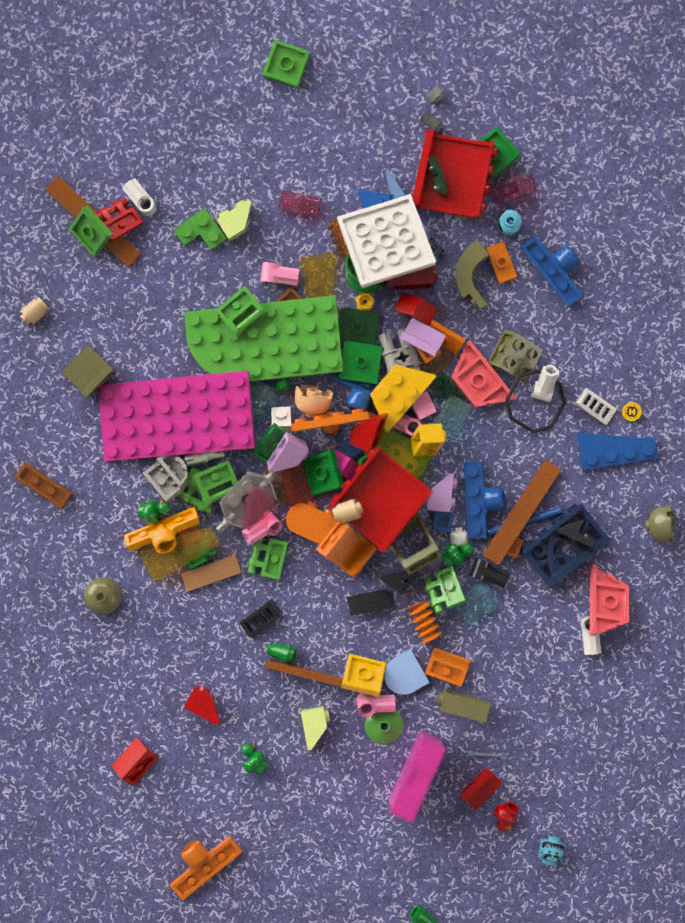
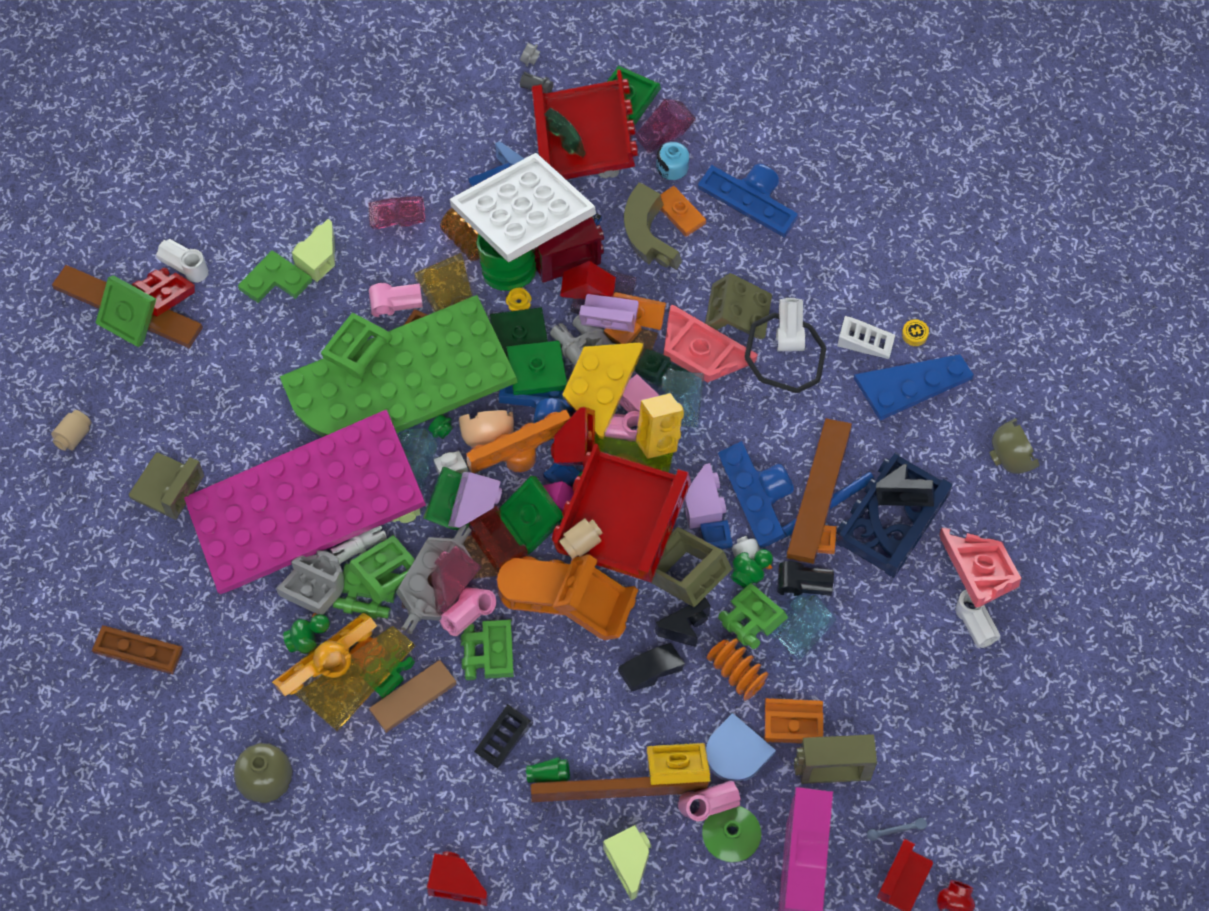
camera: 20 degrees left, 25 degrees down
(286, 64) = (331, 69): bright green plate -> none

